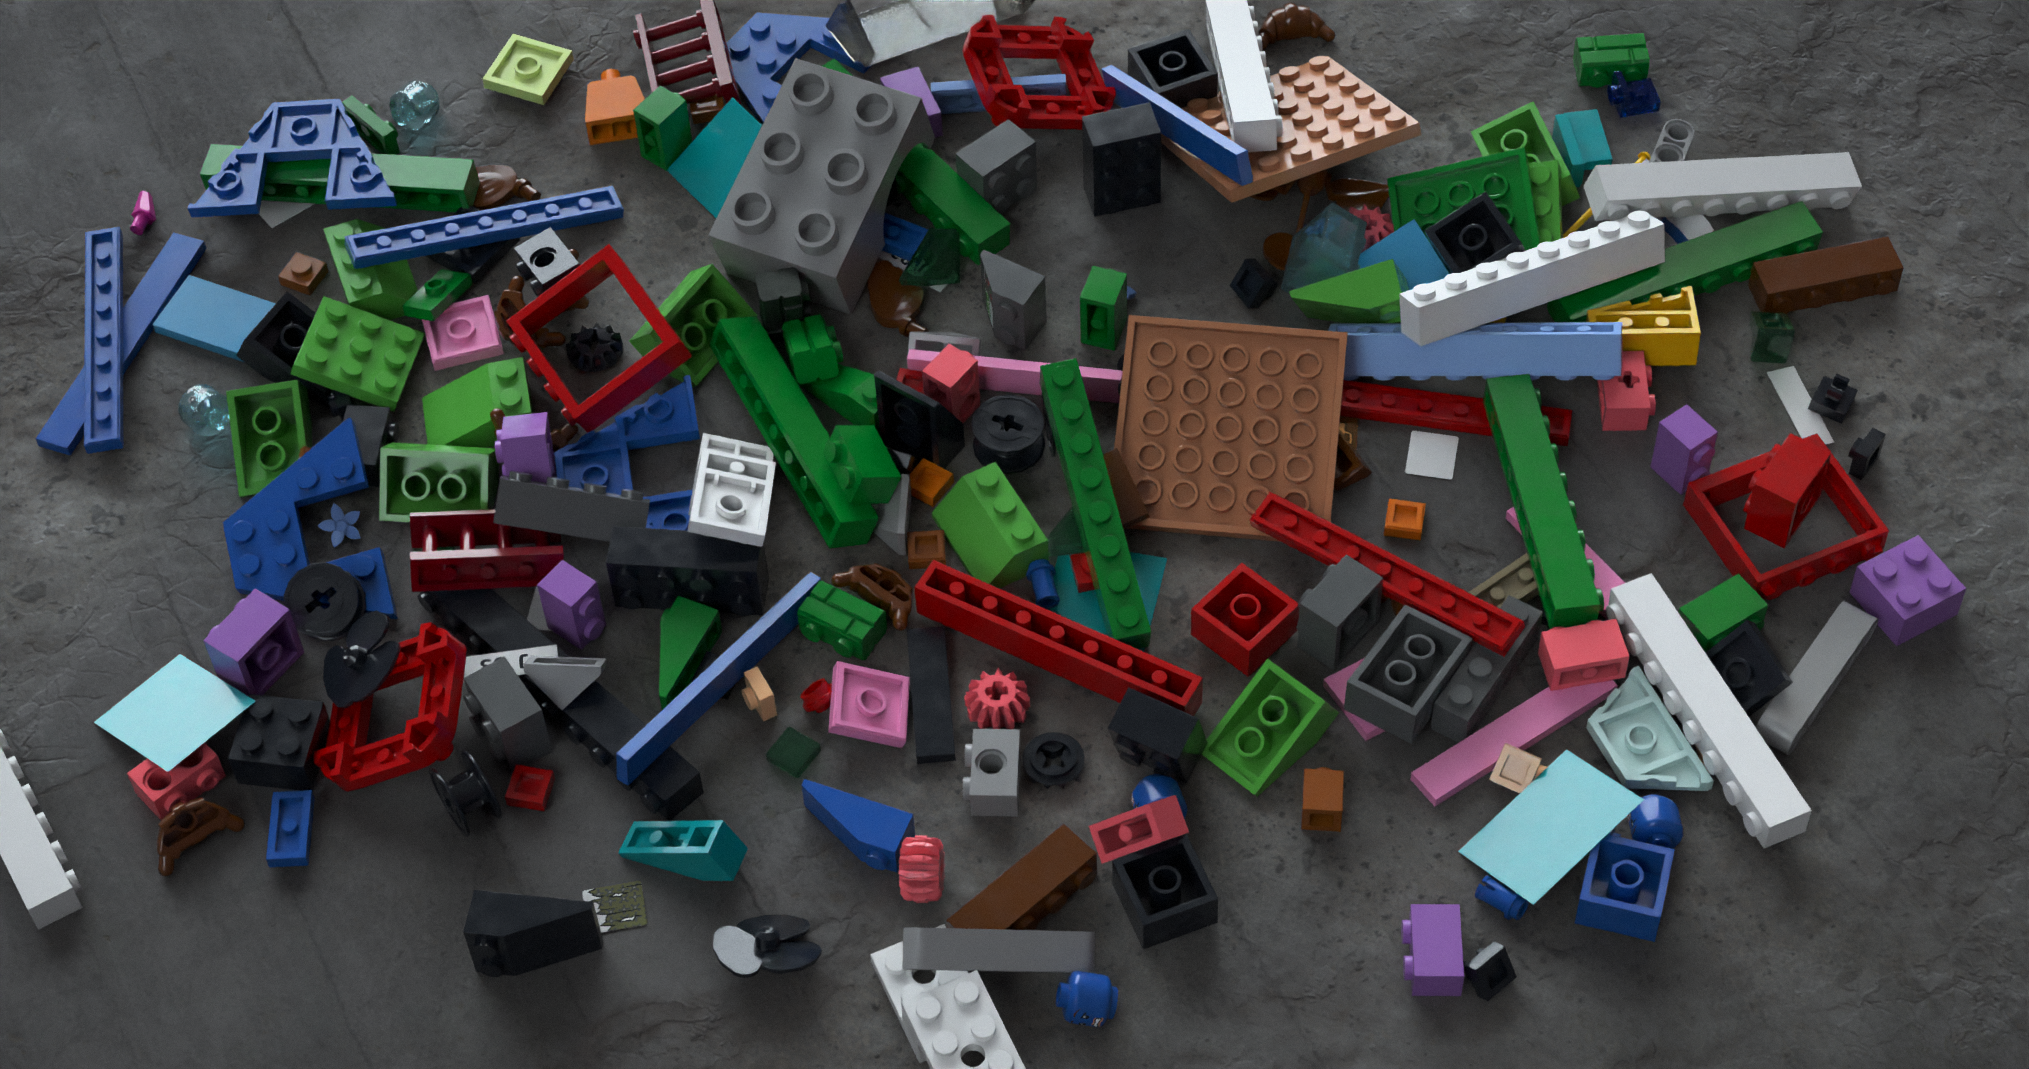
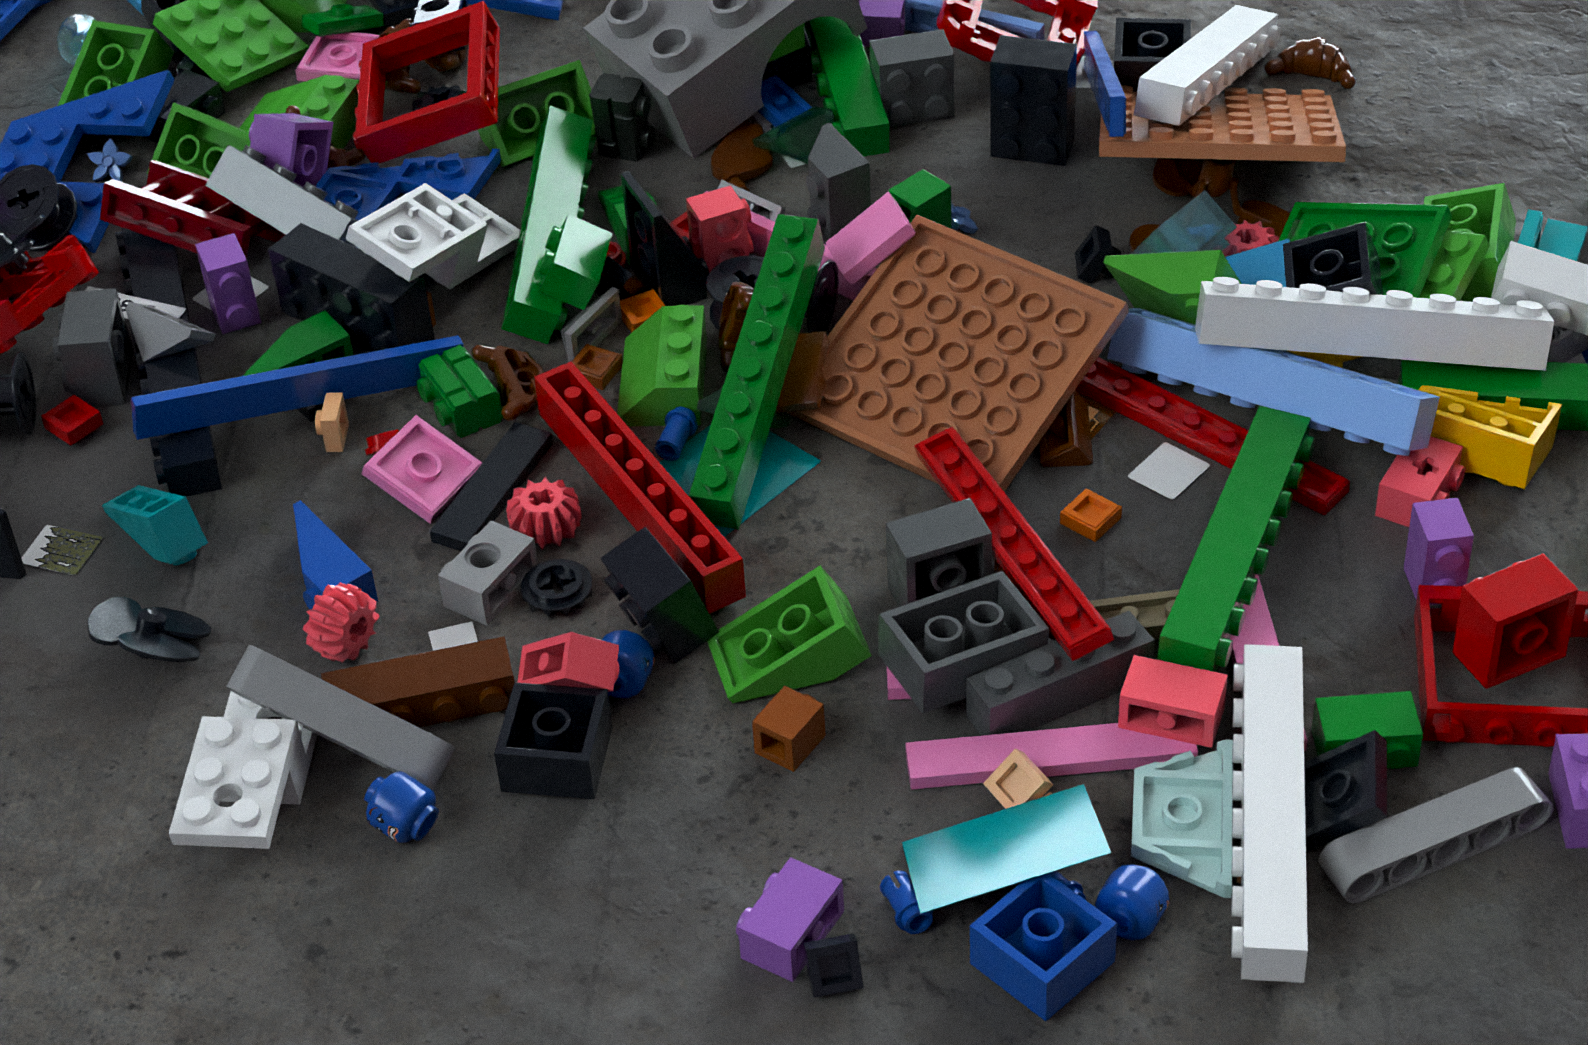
camera: 30 degrees right, 10 degrees down
(793, 752) = (326, 484): clear green tile -> none
(812, 349) = (617, 155): green brick -> none
(1004, 842) = (453, 636): none -> white sticker
(1028, 461) = (732, 319): none -> reddish brown piece
(1100, 345) = (870, 238): none -> bright pink tile
(1244, 619) = (839, 529): red brick -> none

